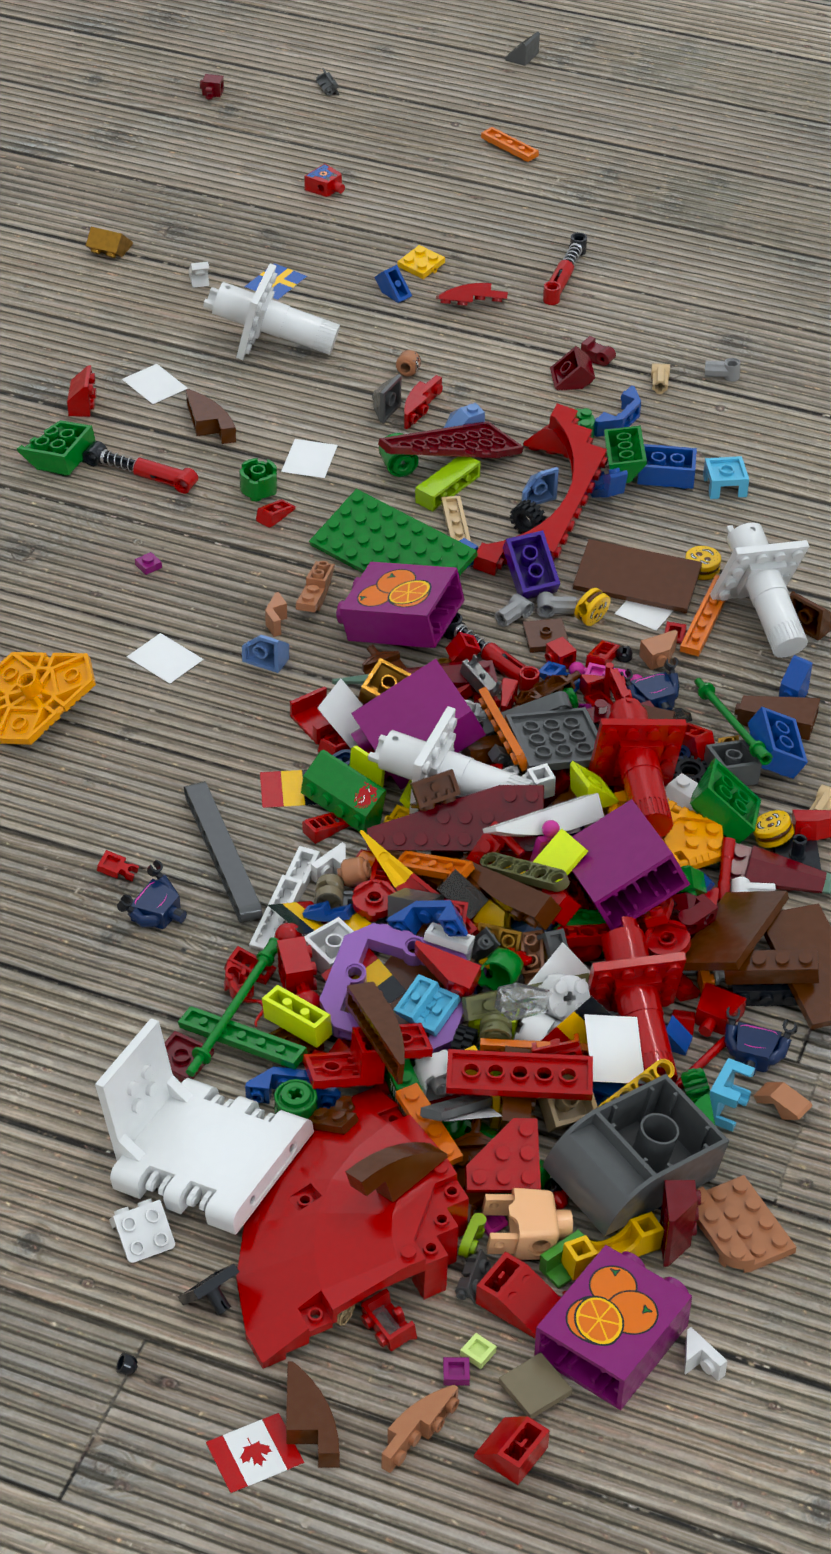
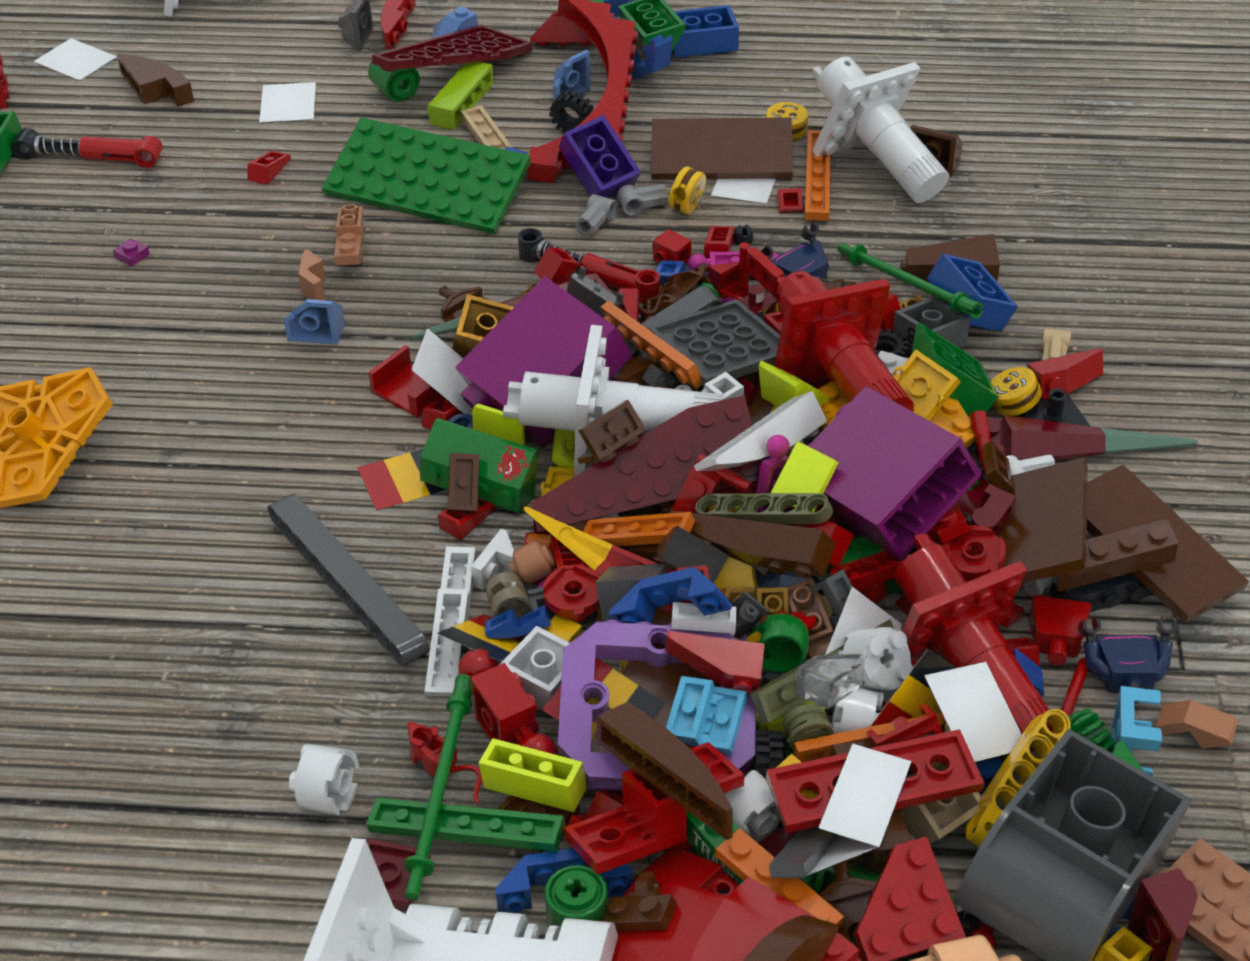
camera: 15 degrees left, 0 degrees up
(114, 864) = (206, 629): red plate -> none
(156, 903) = (281, 667): dark blue torso -> none
(159, 985) = (324, 779): none -> white brick
(165, 658) = (188, 357): white sticker -> none
(248, 958) = (439, 713): red slope -> none
(258, 479) = (236, 132): green brick -> none
(326, 802) = (463, 482): none -> reddish brown plate
(401, 604) = (464, 231): magenta brick -> none
(507, 1081) = (865, 795): none -> white sticker
(542, 632) = (639, 232): reddish brown plate -> none
(658, 648) = (781, 222): nougat slope -> none
(690, 808) = (925, 383): none -> yellow plate
(703, 977) = (1024, 596): orange plate -> none
(723, 883) = (997, 467): none -> reddish brown plate
(726, 472) = (770, 25): medium azure panel -> none
(796, 679) = (957, 216): blue slope -> none

